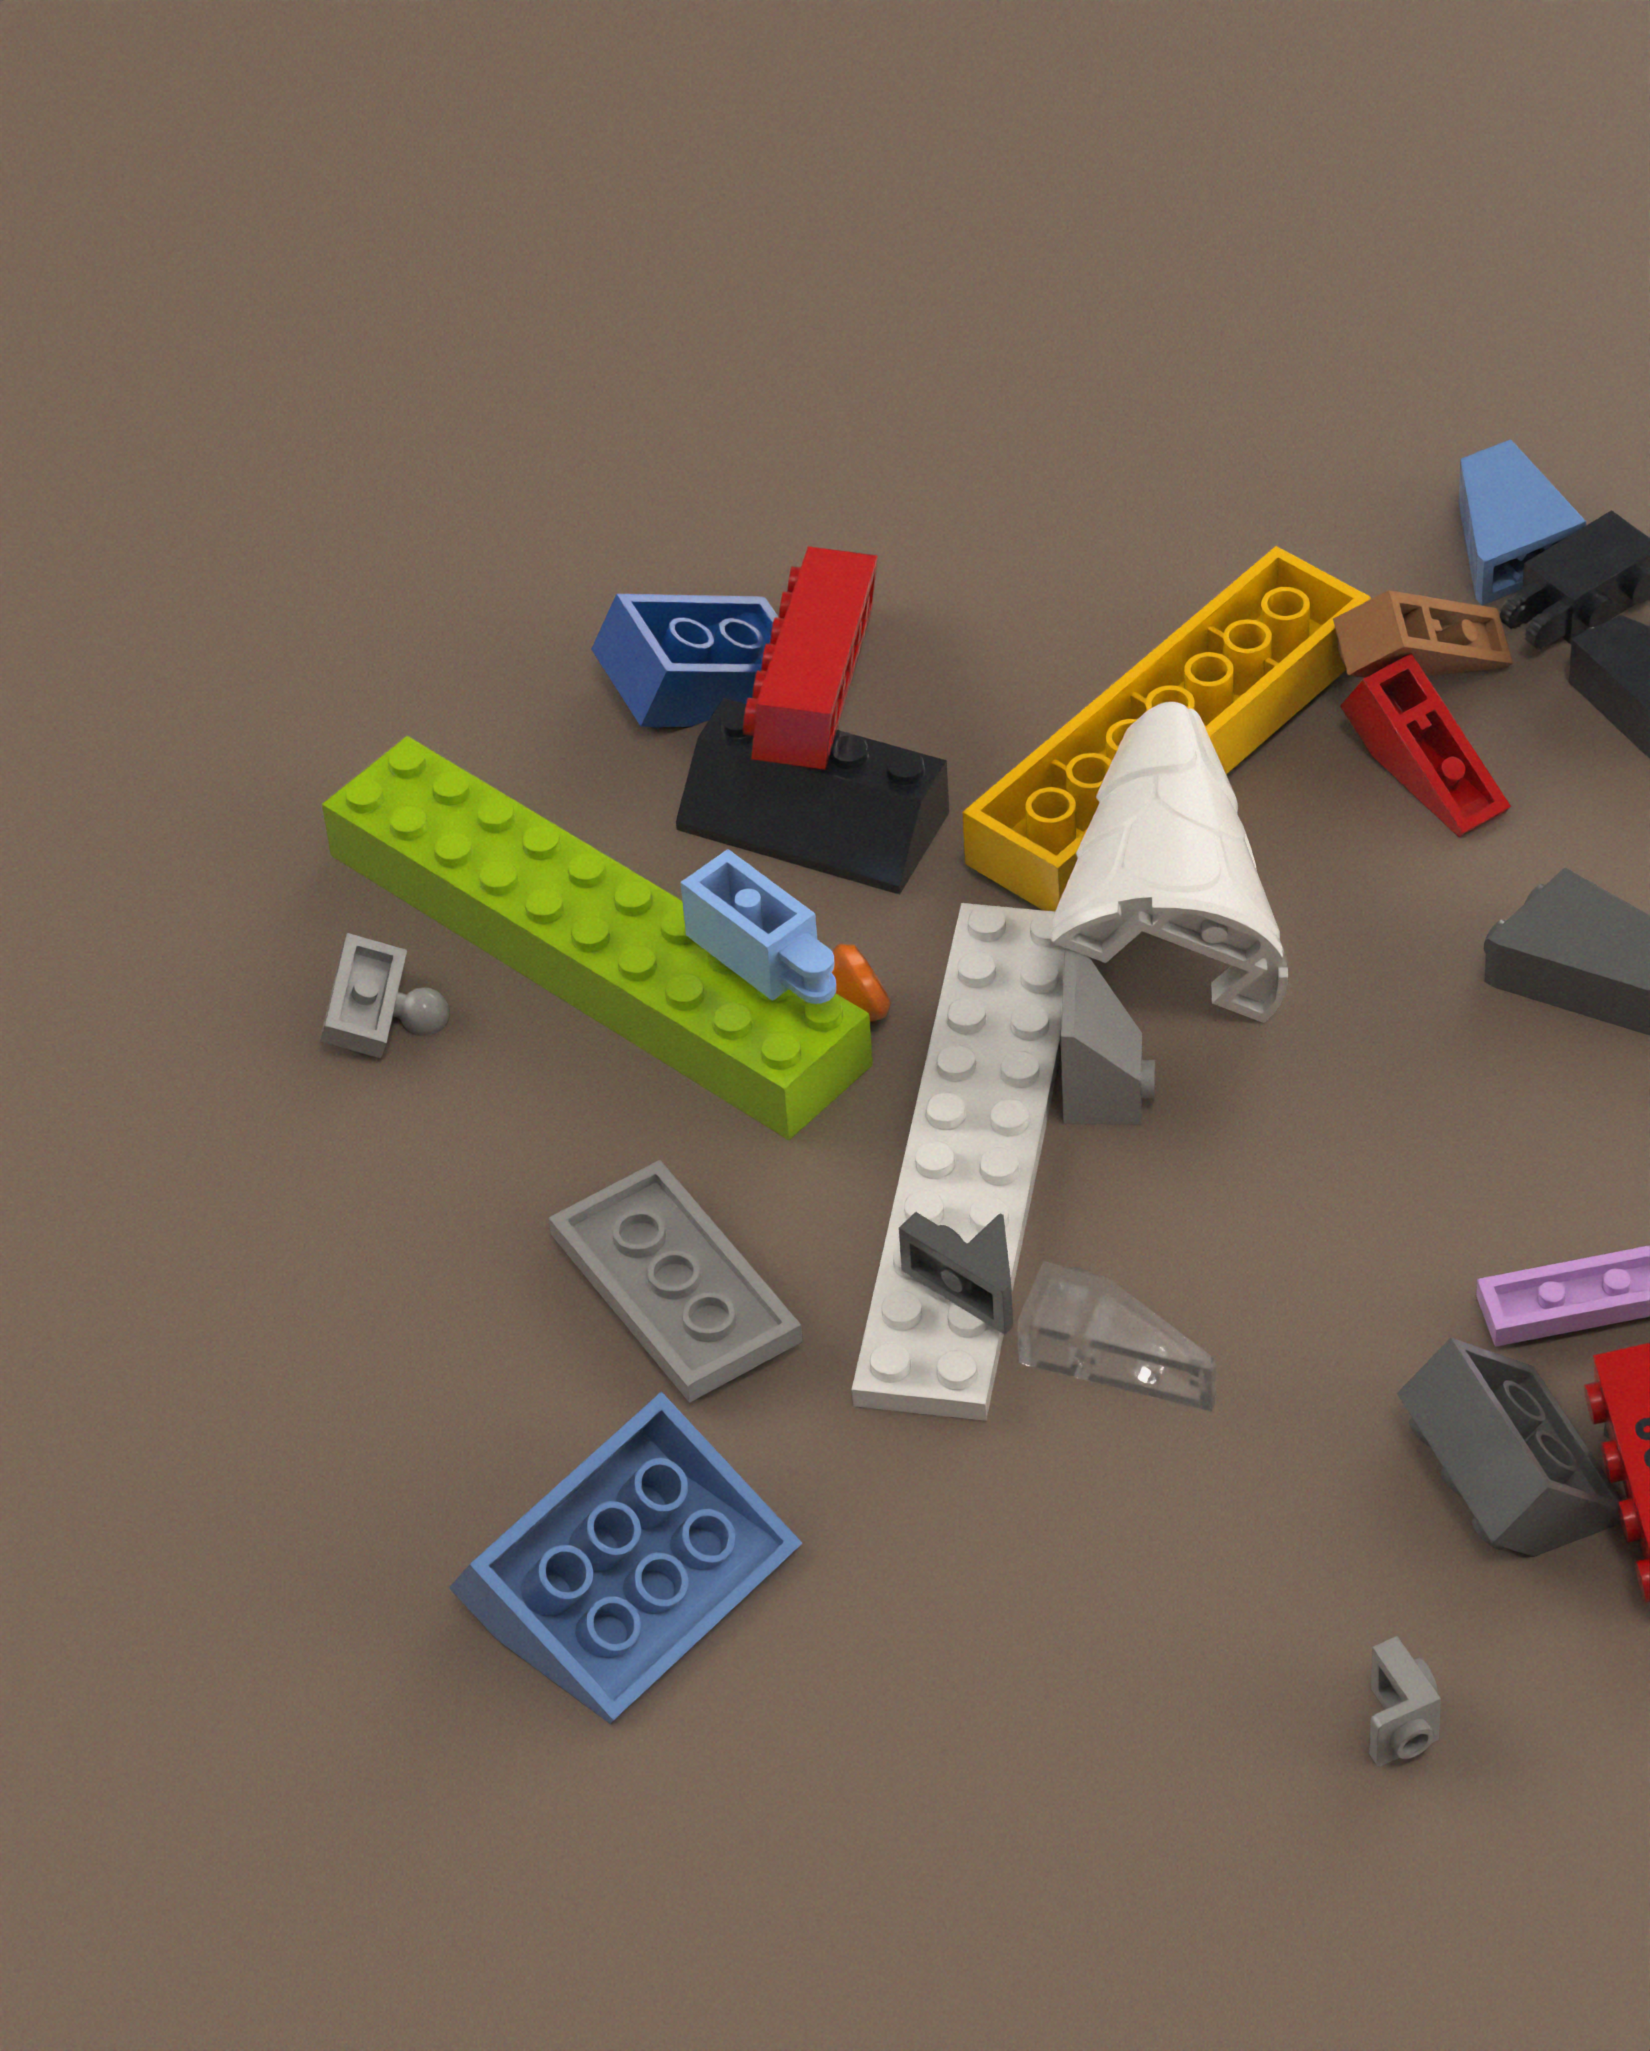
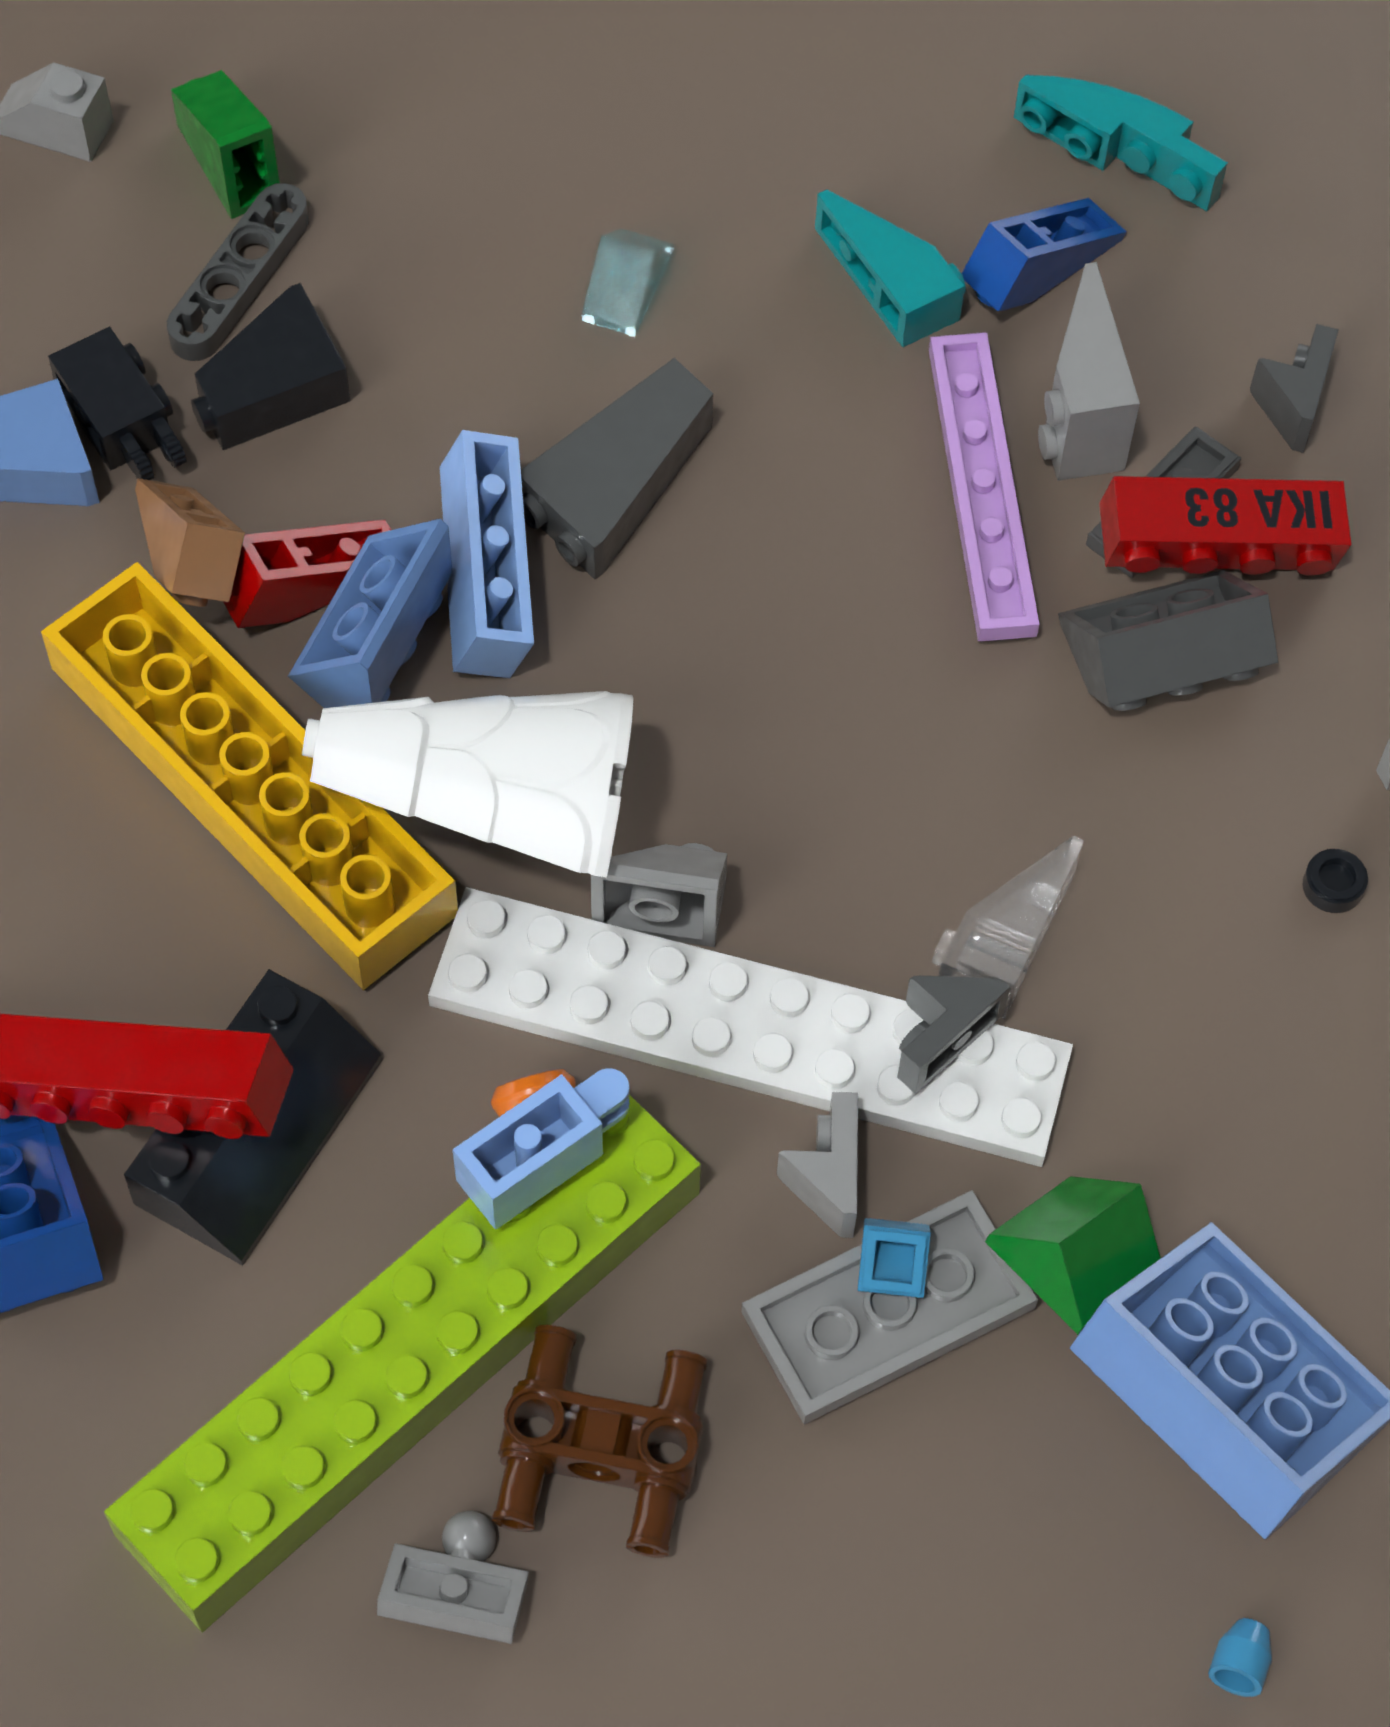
camera: 90 degrees left, 15 degrees up
(333, 1586) = (1242, 1658): none -> dark azure hose
(512, 1093) = (600, 1440): none -> reddish brown piece
(718, 1260) = (894, 1257): none -> dark azure slope
(751, 1409) = (1079, 1244): none -> green slope
(804, 1224) = (829, 1175): none -> light grey slope
(1234, 1635) = (1335, 880): none -> black tile
(1356, 794) = (376, 616): none -> medium blue slope
(1462, 863) = (488, 555): none -> light blue brick

